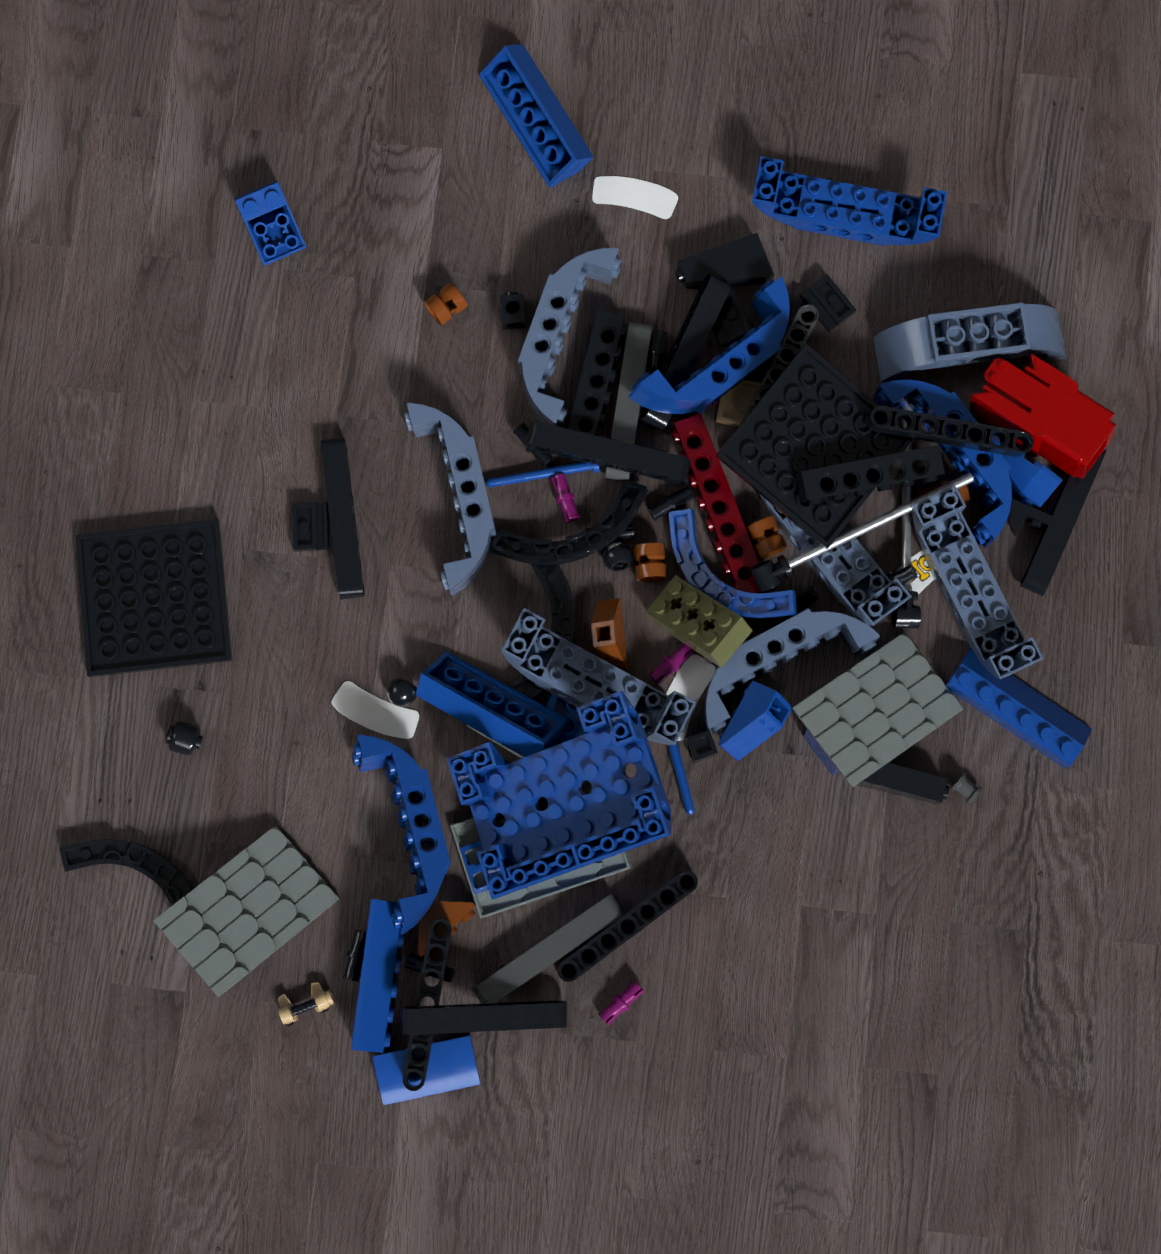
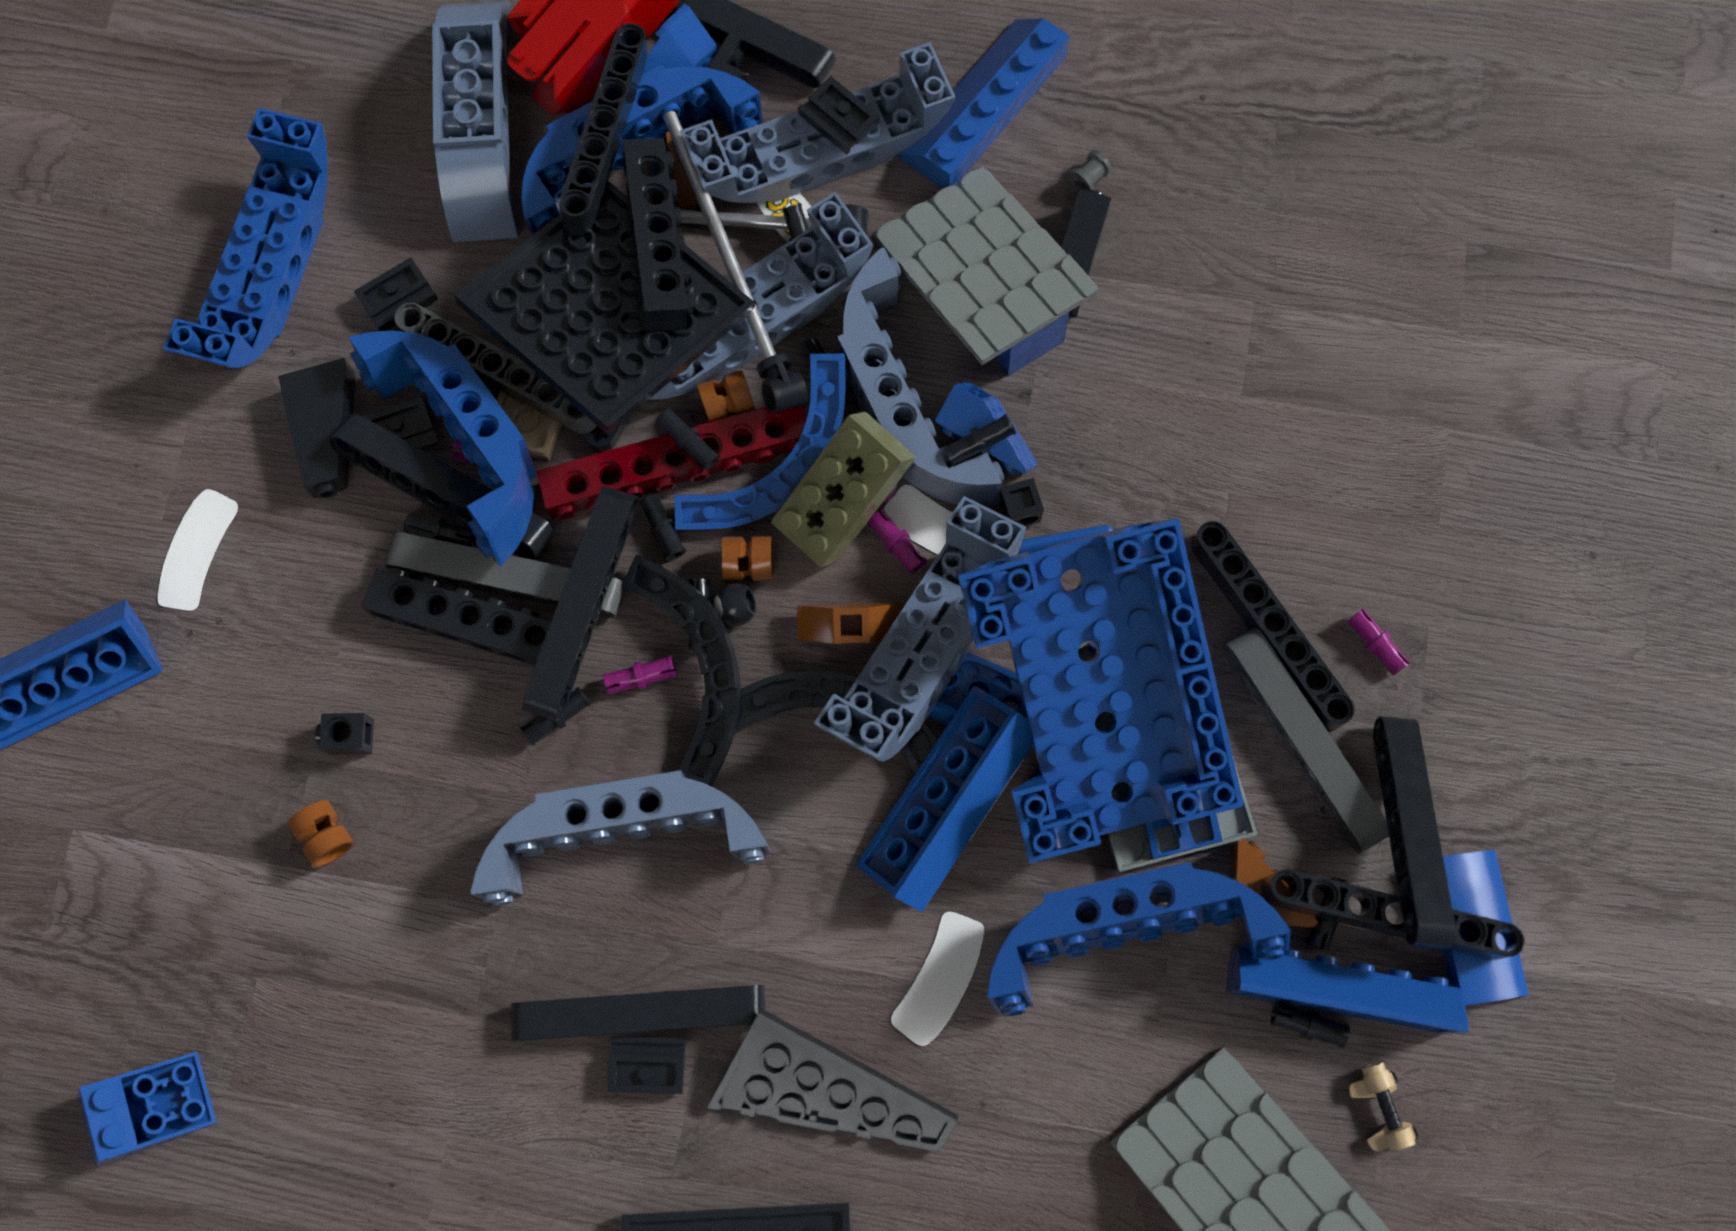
camera: 85 degrees left, 5 degrees down
(301, 634) = (818, 1087): none -> black wing
(401, 692) = (916, 934): black piece -> none
(541, 473) = (599, 704): blue bar -> none
(561, 292) = (378, 677): sand blue slope -> none
(728, 512) = (687, 439): none -> black pin
(737, 711) = (980, 440): none -> black pin
(983, 598) = (838, 115): none -> black plate

